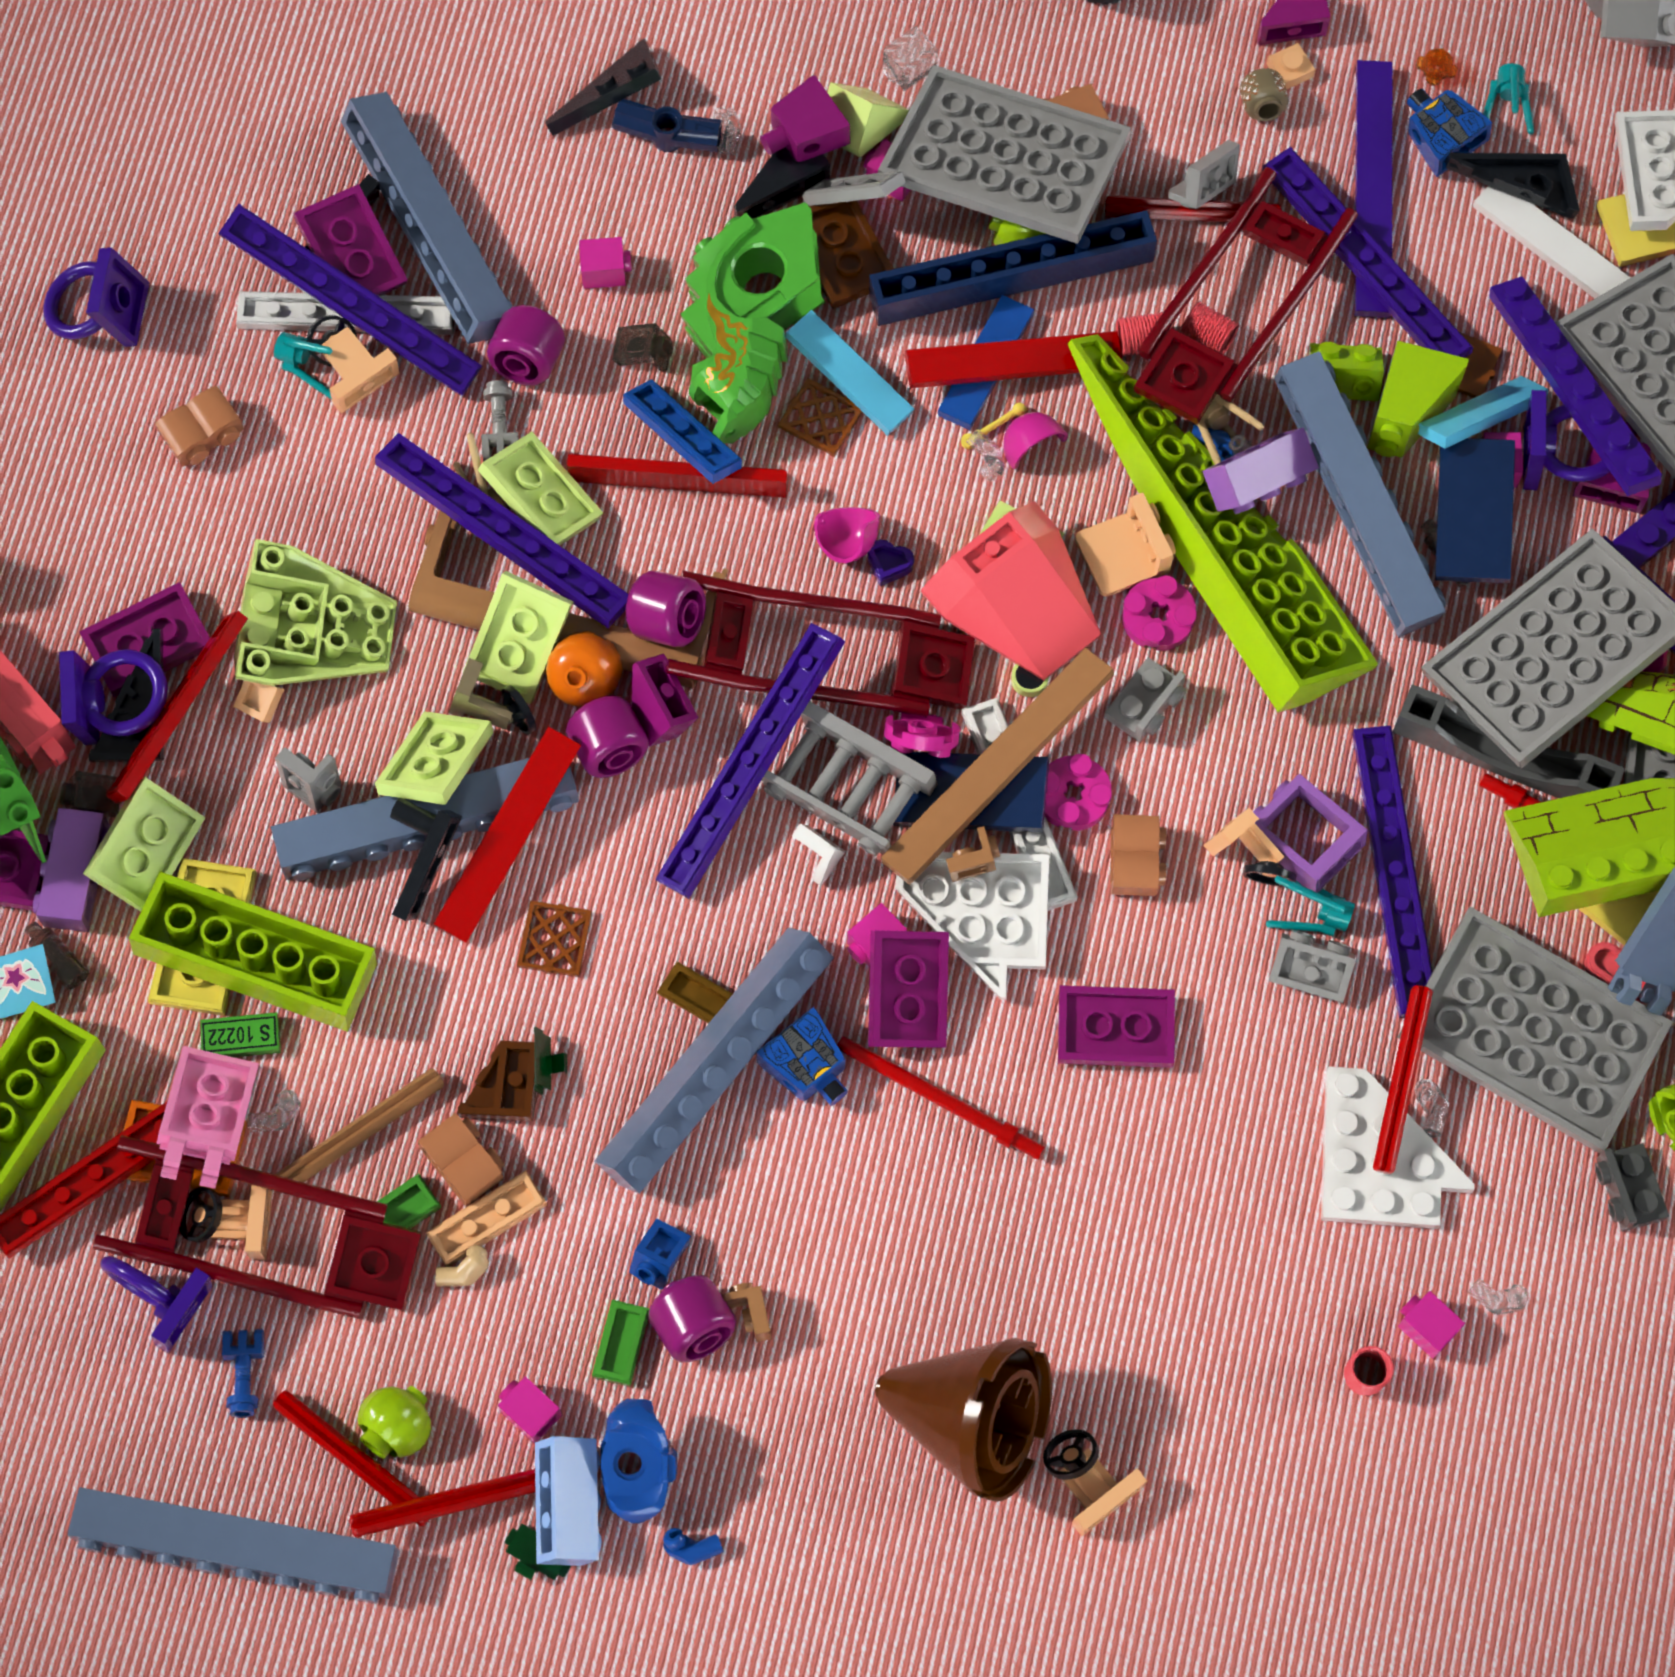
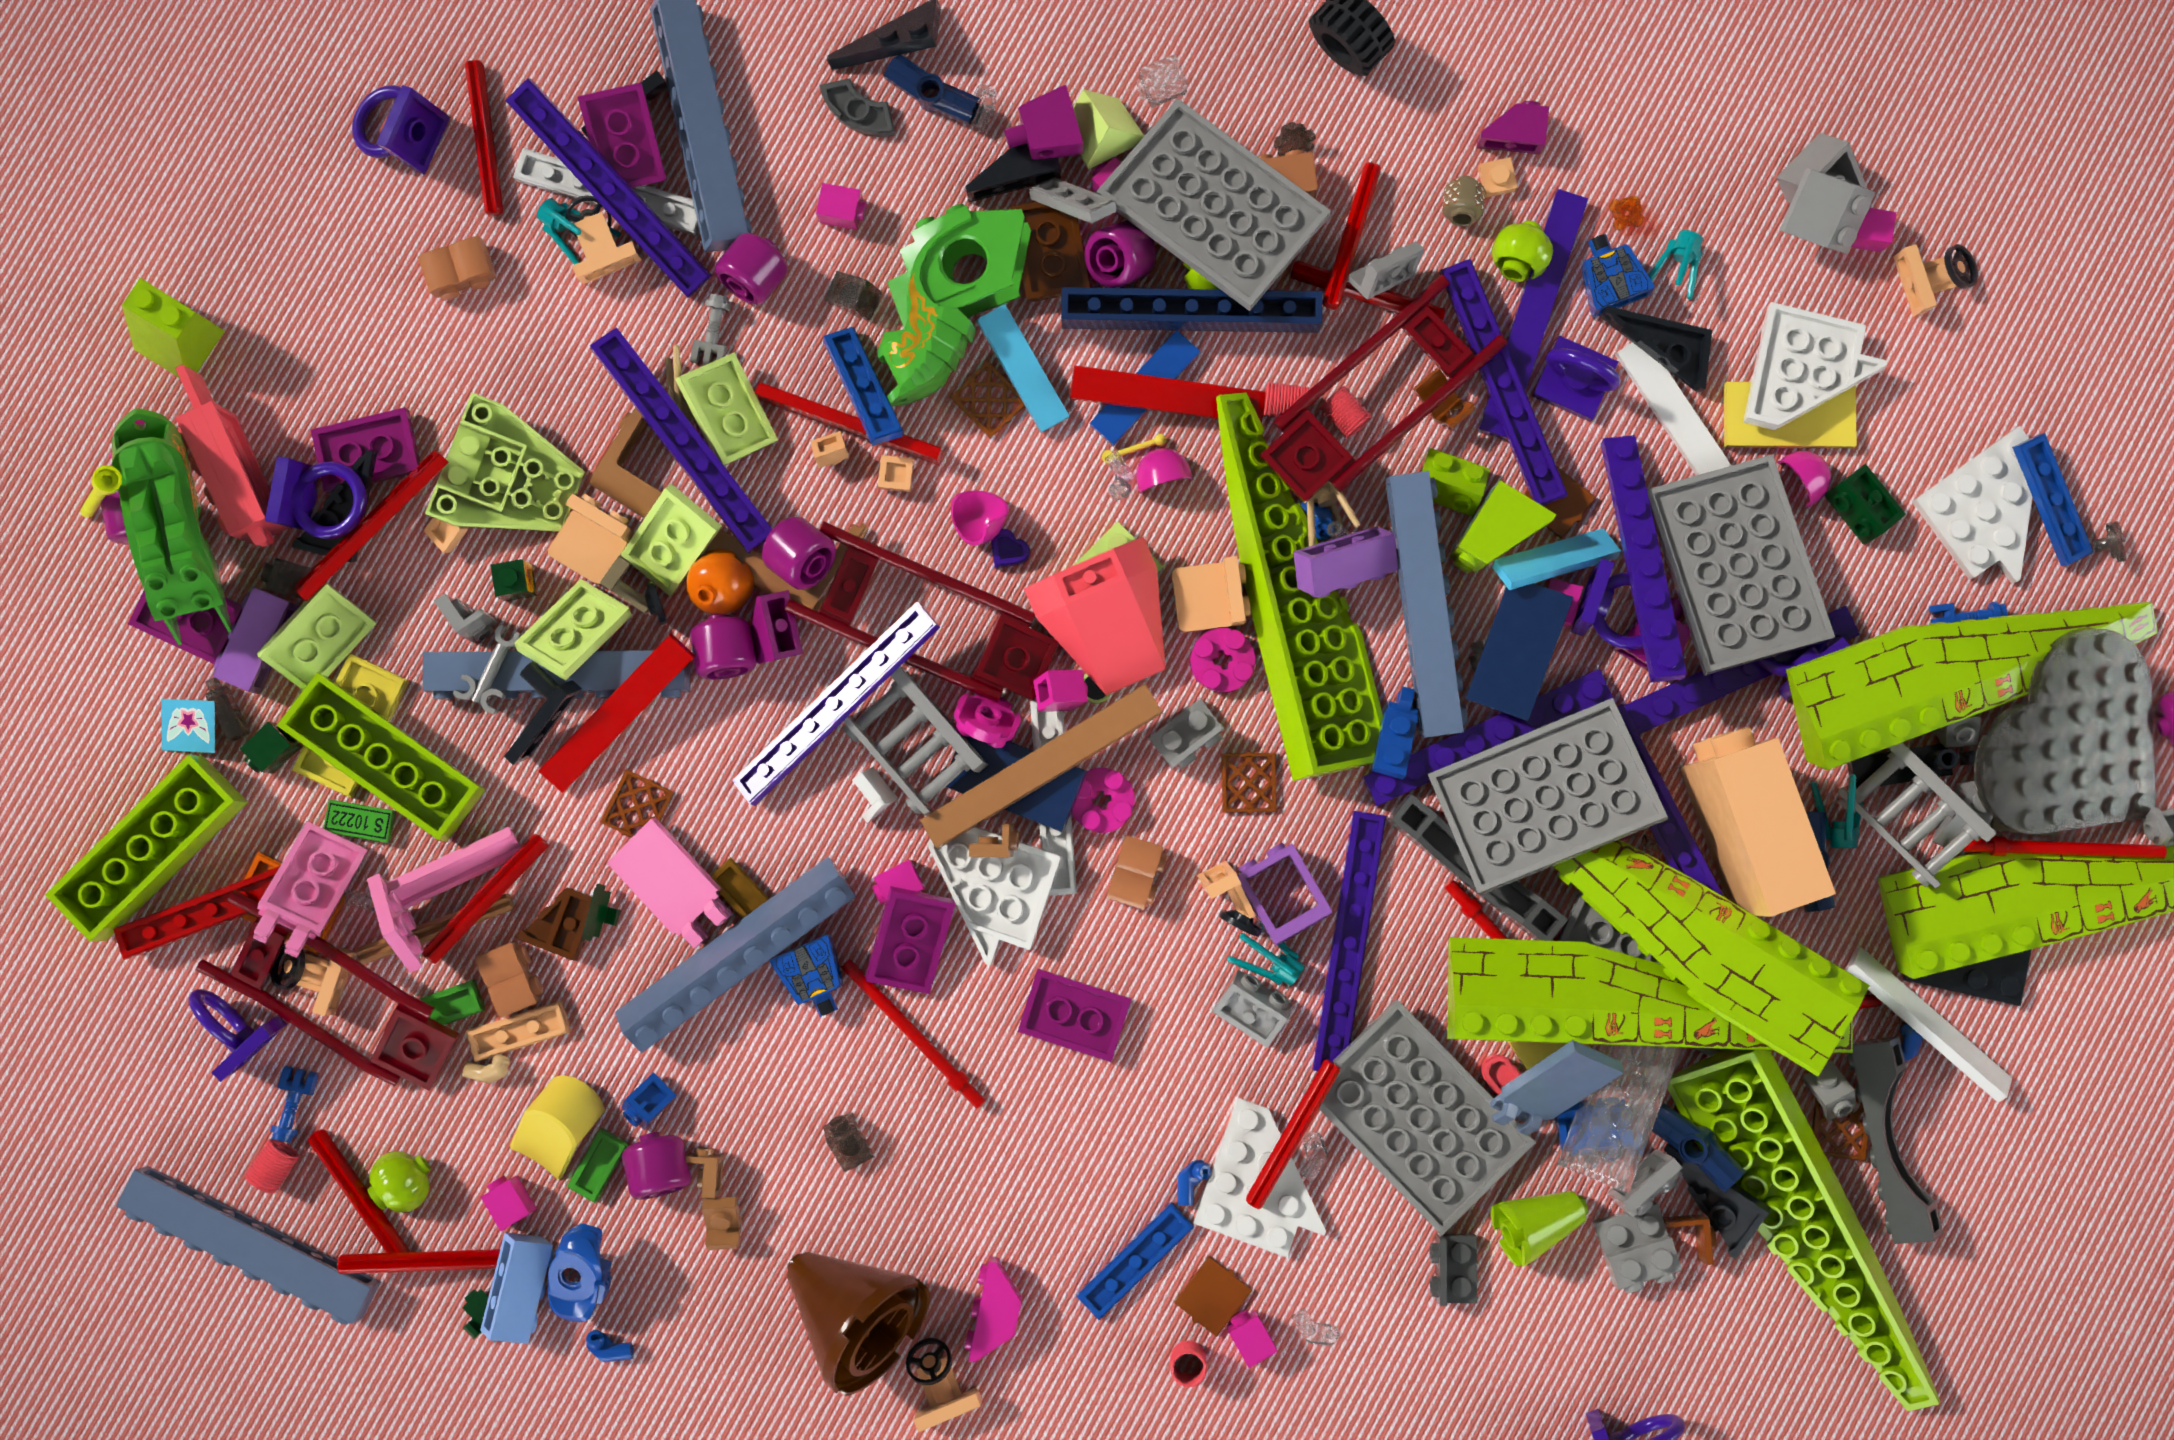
camera: 20 degrees right, 15 degrees up
(118, 981) = (269, 749): none -> dark green brick
(193, 293) = (484, 138): none -> red axle
(239, 1444) = (271, 1166): none -> coral piece
(318, 1091) = (409, 889): none -> bright pink bracket
(350, 729) = (513, 580): none -> dark green brick
(350, 849) = (480, 691): none -> light grey bar
(410, 1075) = (484, 898): none -> red axle
(425, 663) = (590, 538): none -> light nougat bracket
(560, 1309) = (557, 1123): none -> light yellow piece
(592, 168) = (857, 112): none -> dark grey tile
(614, 1004) = (670, 882): none -> bright pink tile
(663, 507) = (829, 449): none -> light nougat plate
(743, 513) = (896, 473): none -> light nougat plate
(784, 1361) = (722, 1223): none -> medium nougat bracket
(902, 1234) = (847, 1141): none -> clear smoke bracket
(920, 230) = (1119, 255): none -> magenta head
(994, 683) = (1060, 690): none -> dark pink brick
(1066, 77) = (1294, 137): none -> clear smoke plant
(1129, 1374) = (995, 1311): none -> dark pink slope
(1158, 156) = (1351, 236): none -> red axle
(1219, 706) = (1248, 756): none -> dark orange window
(1269, 1280) = (1134, 1261): none -> blue tile
(1302, 1170) = (1189, 1178): none -> blue arm
(1312, 303) = (1453, 403): none -> dark orange bracket
(1337, 123) = (1519, 249): none -> lime plant
(1370, 1295) = (1212, 1296): none -> dark orange piece
(1374, 637) = (1396, 736): none -> blue hinge
(1393, 680) = (1548, 708): none -> dark purple plate
(1442, 233) = (1576, 378): none -> dark purple tile

